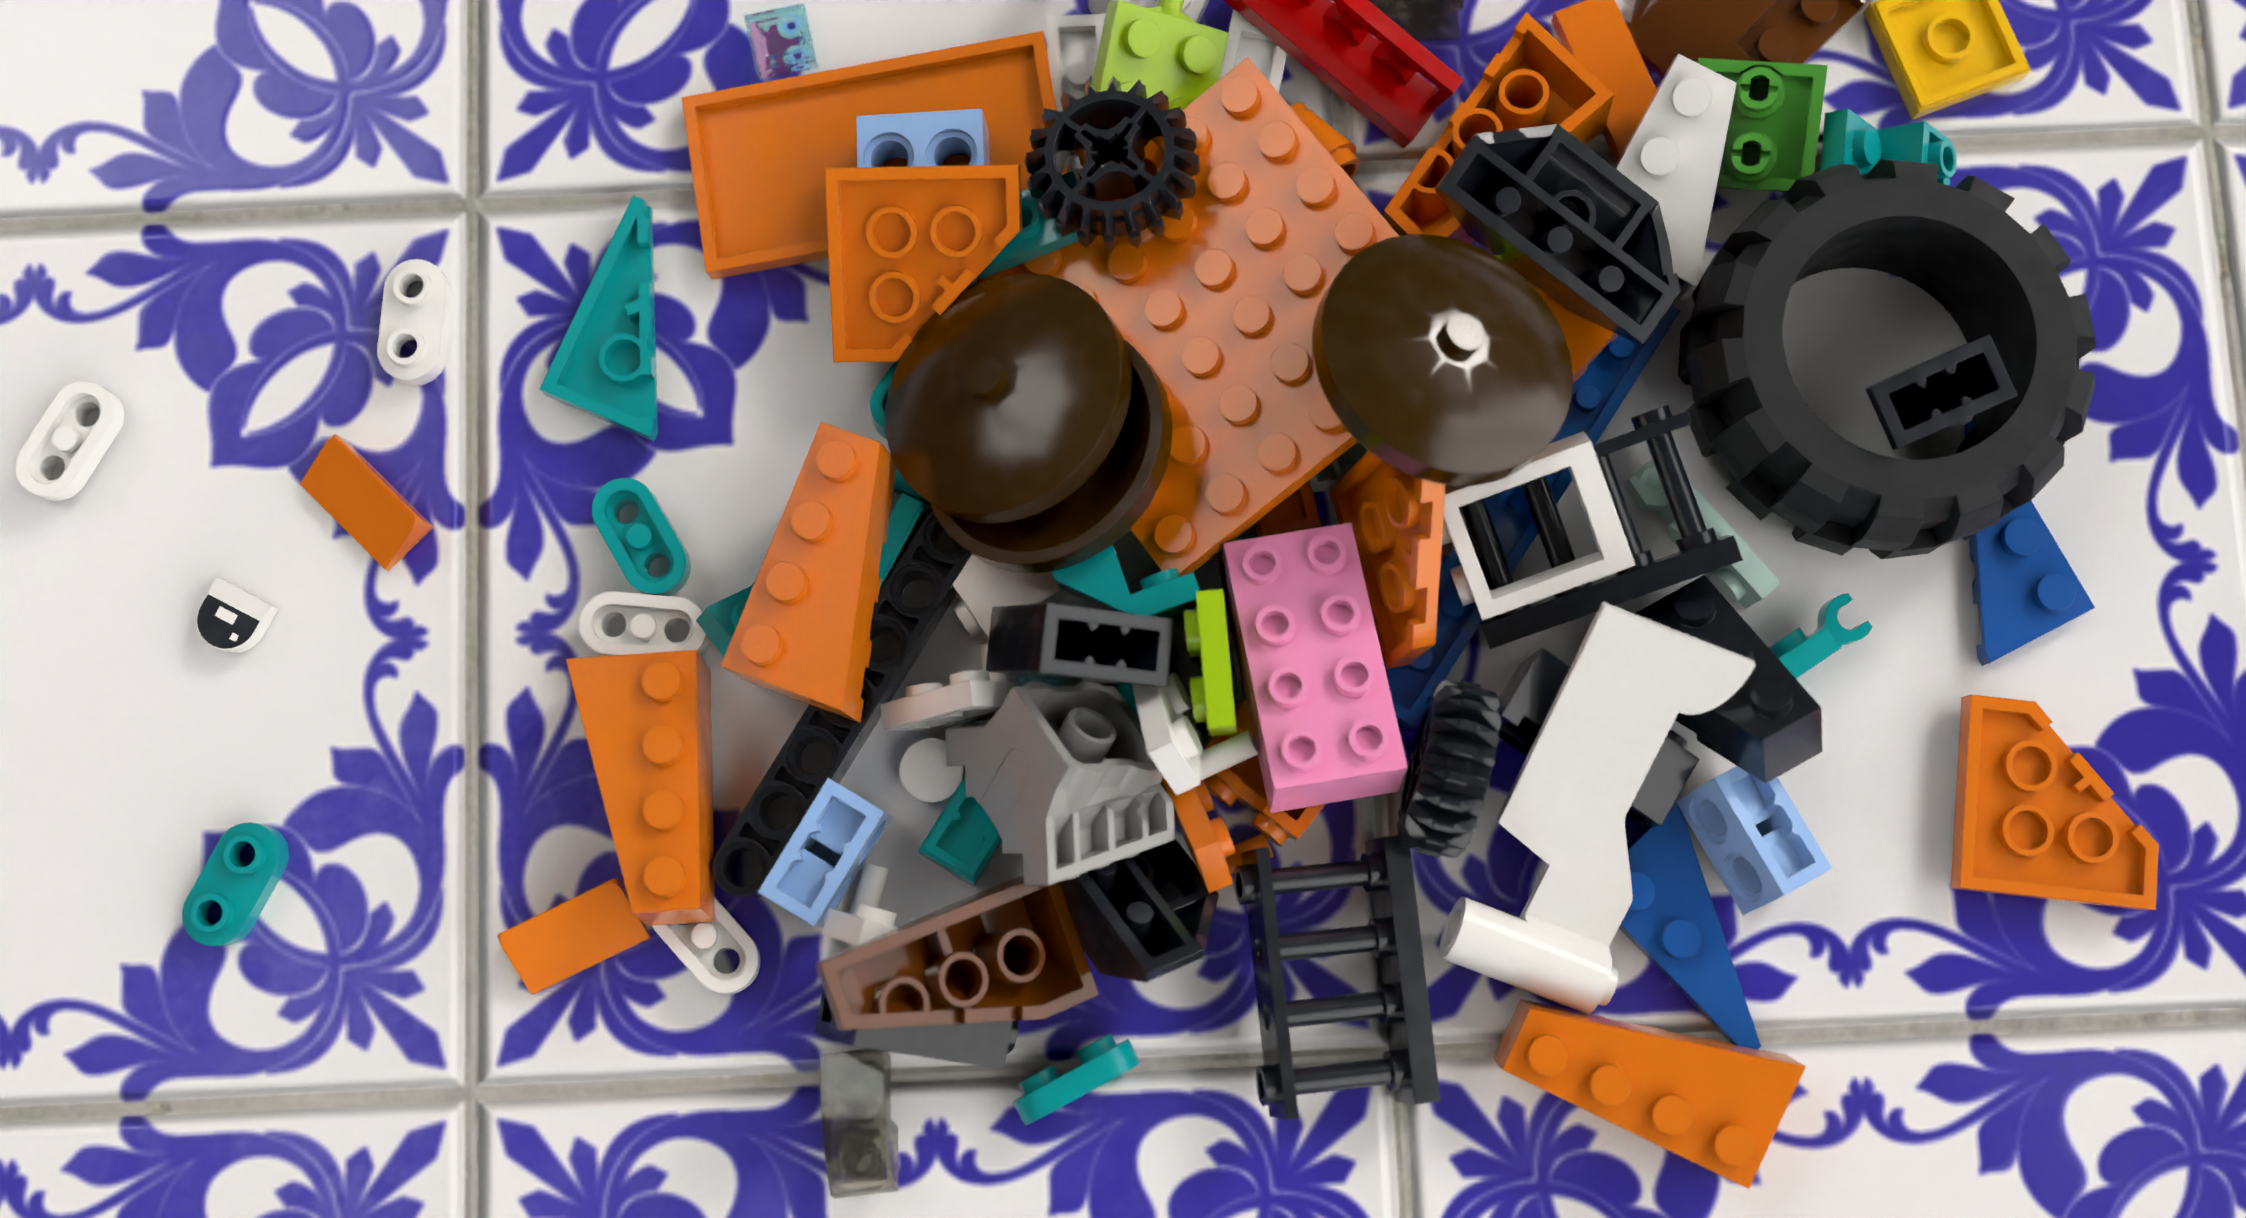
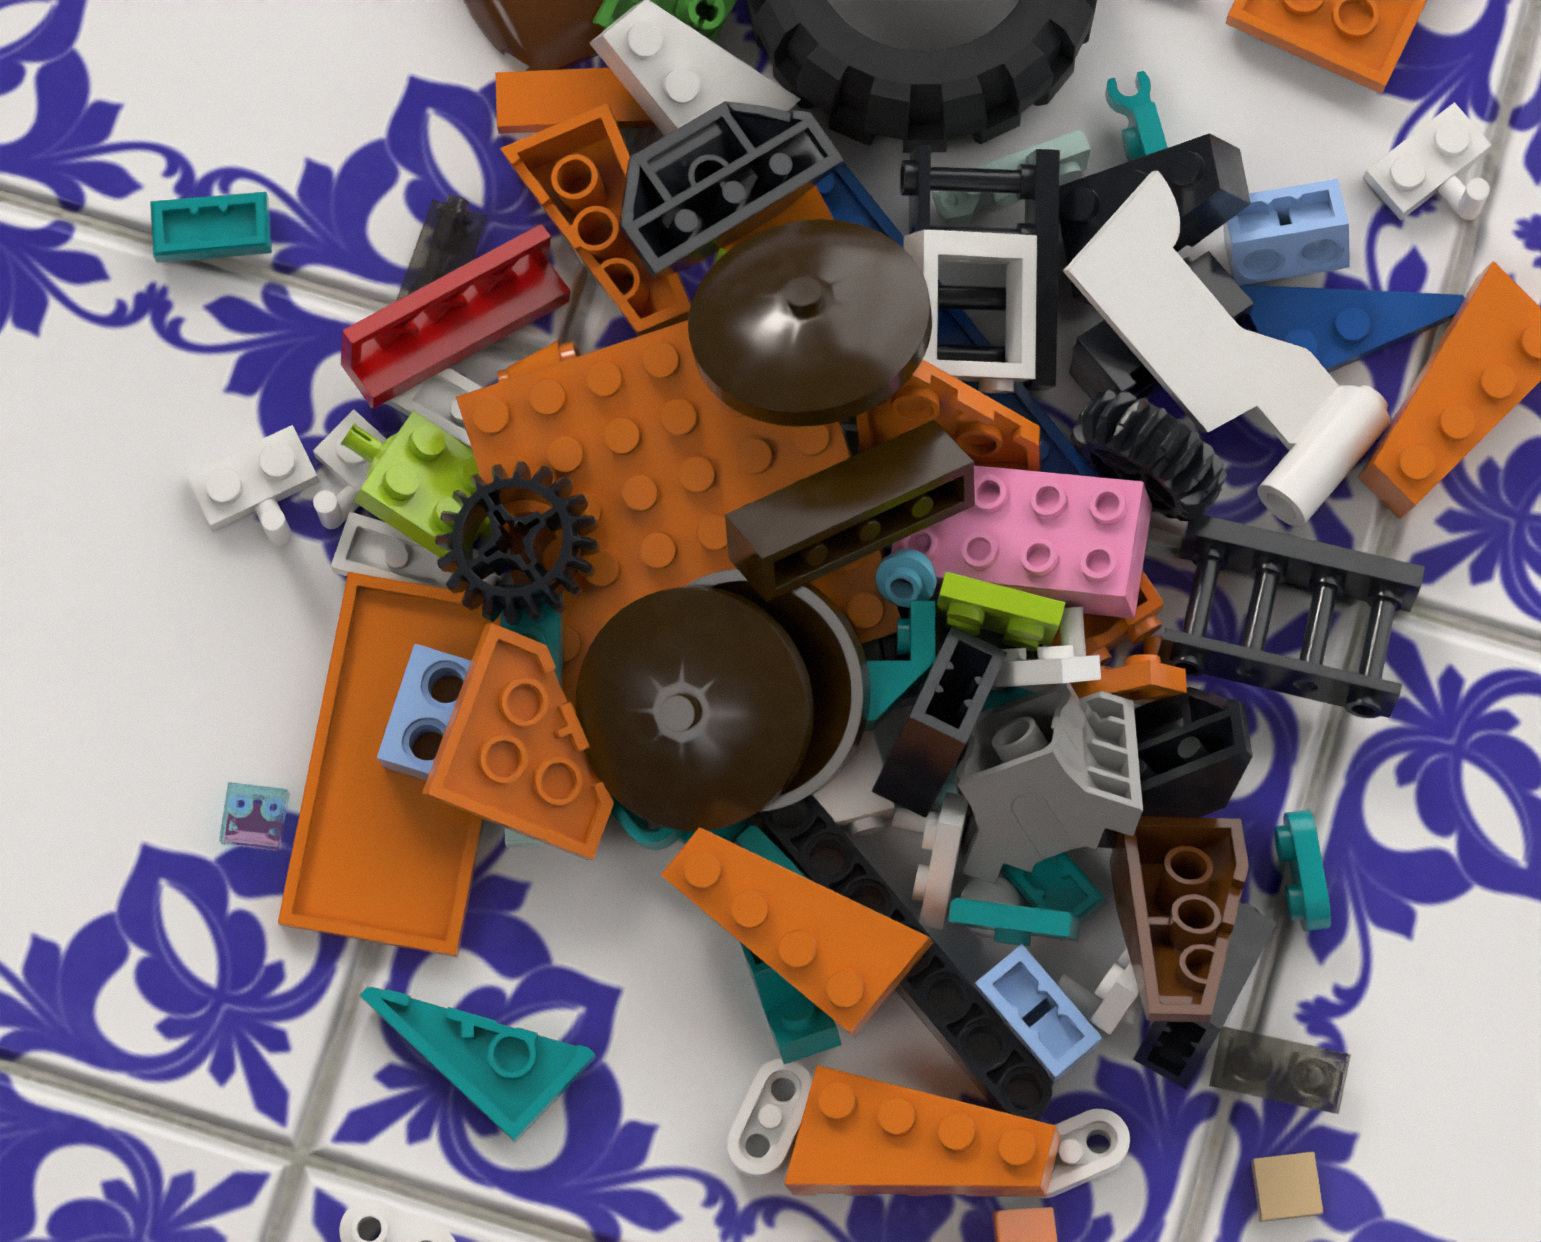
camera: 70 degrees left, 5 degrees down
(642, 540) = (684, 1089): teal plate -> none
(745, 1169) = (1287, 1187): none -> tan tile
(909, 798) = (1014, 923): none -> teal plate
(1220, 560) = (906, 565): none -> medium azure plate
(1257, 471) = (850, 510): none -> dark brown brick
(1893, 966) = (1430, 164): none -> white plate

